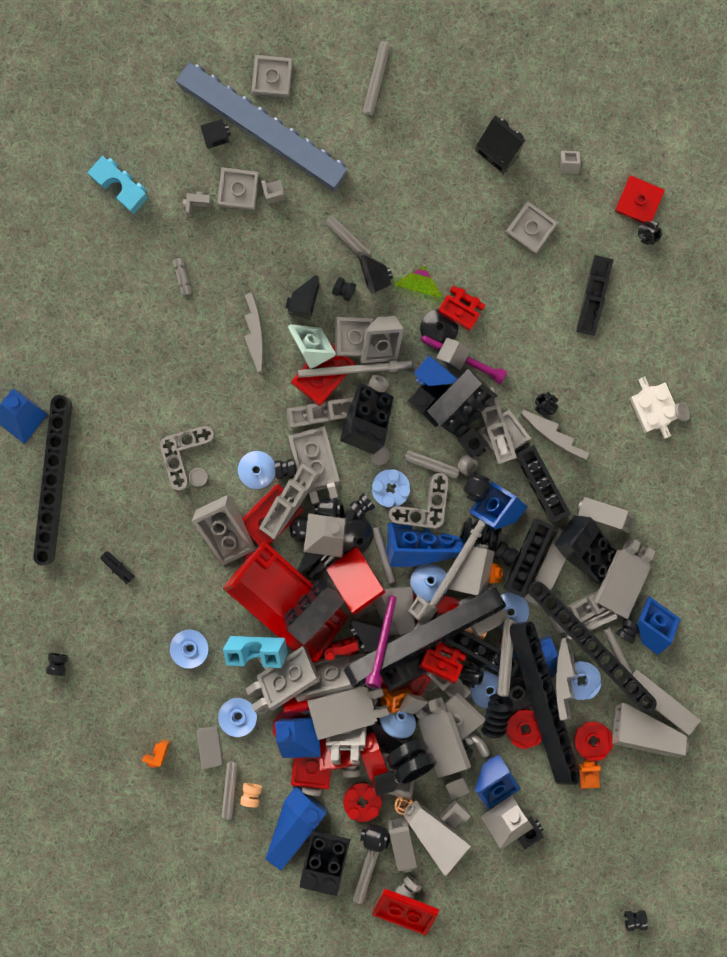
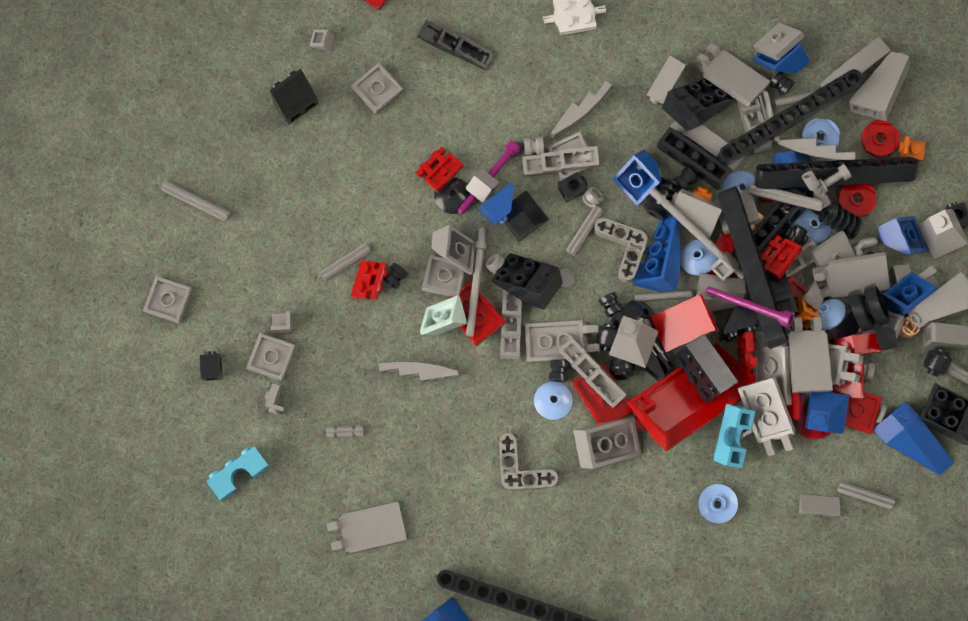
camera: 80 degrees left, 10 degrees down
(94, 321) = (369, 528): none -> light grey tile
(117, 567) = (622, 558): black axle -> none
(160, 753) = (815, 555): orange bracket -> none
(198, 477) = (548, 459): light grey piece -> none
(232, 725) = (804, 467): light blue dish -> none
(251, 795) = (874, 474): light nougat wheel -> none
(262, 127) = (215, 320): sand blue brick -> none
(303, 299) = (398, 314): black slope -> none
(333, 265) = (369, 280): none -> red plate
(354, 810) = (892, 375): red plate -> none
(375, 273) = (388, 242): black slope -> none
(380, 485) = (603, 264): light blue plate -> none
(420, 282) = (404, 203): clear neon green tile -> none
(435, 798) = (907, 294): none -> blue slope
(462, 403) = (534, 185): black brick -> none
(477, 487) = (616, 191): black head -> none
(506, 395) = (533, 146): none -> light grey wheel
(524, 689) = (820, 187): none -> light grey bar
(542, 484) = (626, 130): black brick -> none
(546, 404) = (550, 111): black gear -> none
(672, 619) = (778, 41): none -> light grey plate

